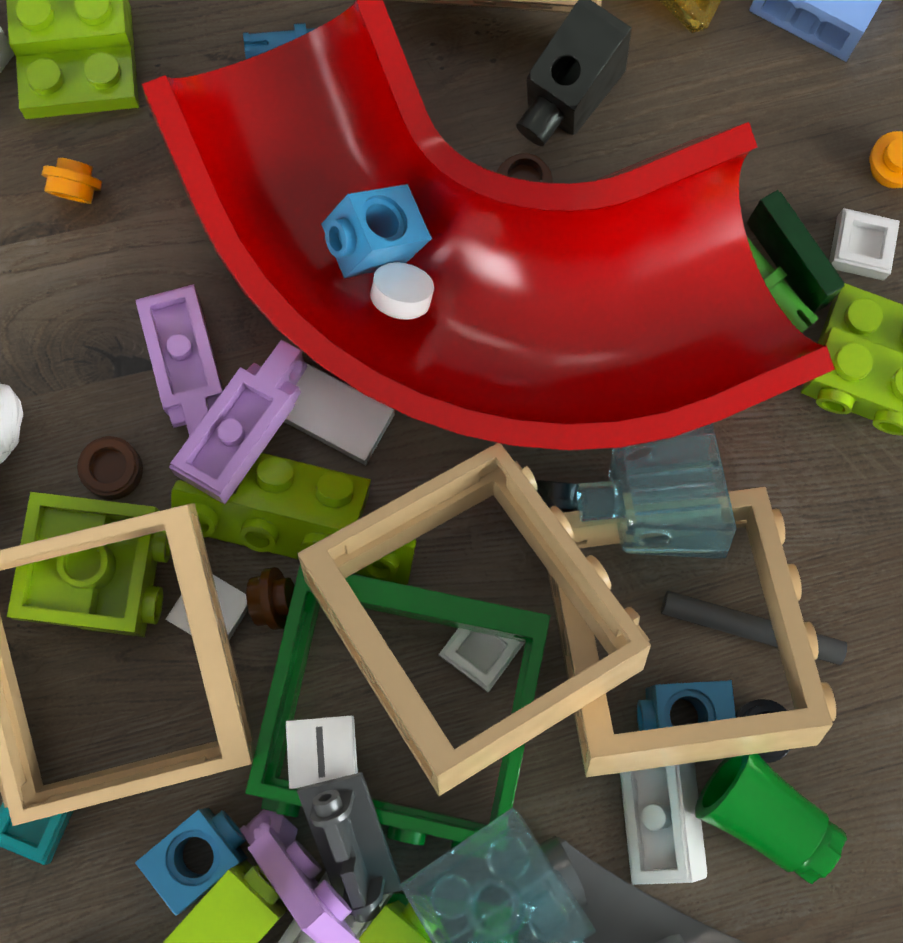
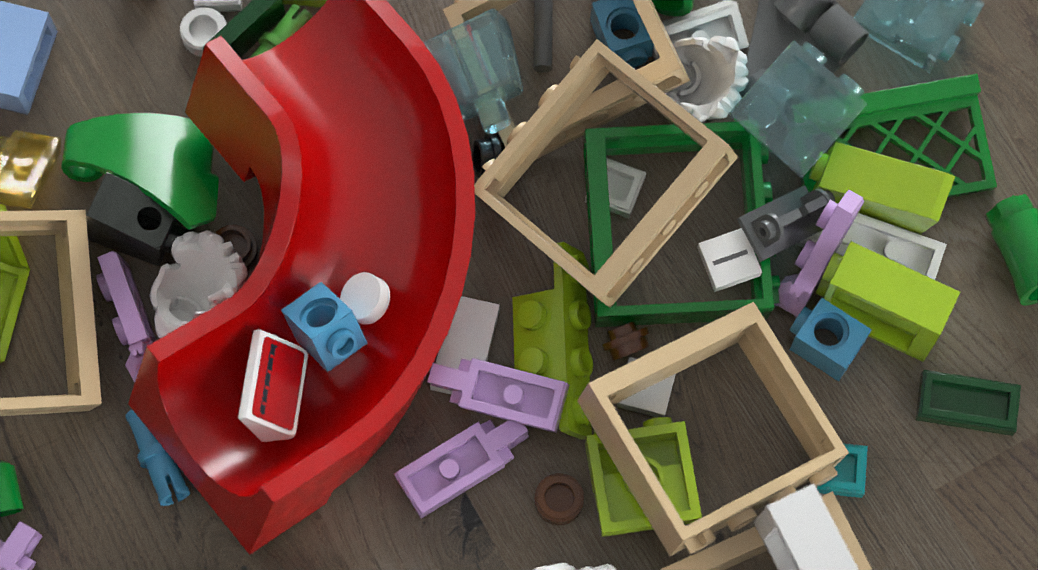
camera: 100 degrees left, 5 degrees down
(316, 151) = (273, 387): none -> slope
(474, 52) = (132, 321): none -> lavender hinge
(479, 113) = (200, 280): none -> white hair
(570, 809) = (716, 76): none -> white hair
(638, 100) = (150, 150): none -> green panel
(815, 209) = (200, 27): none -> white tile

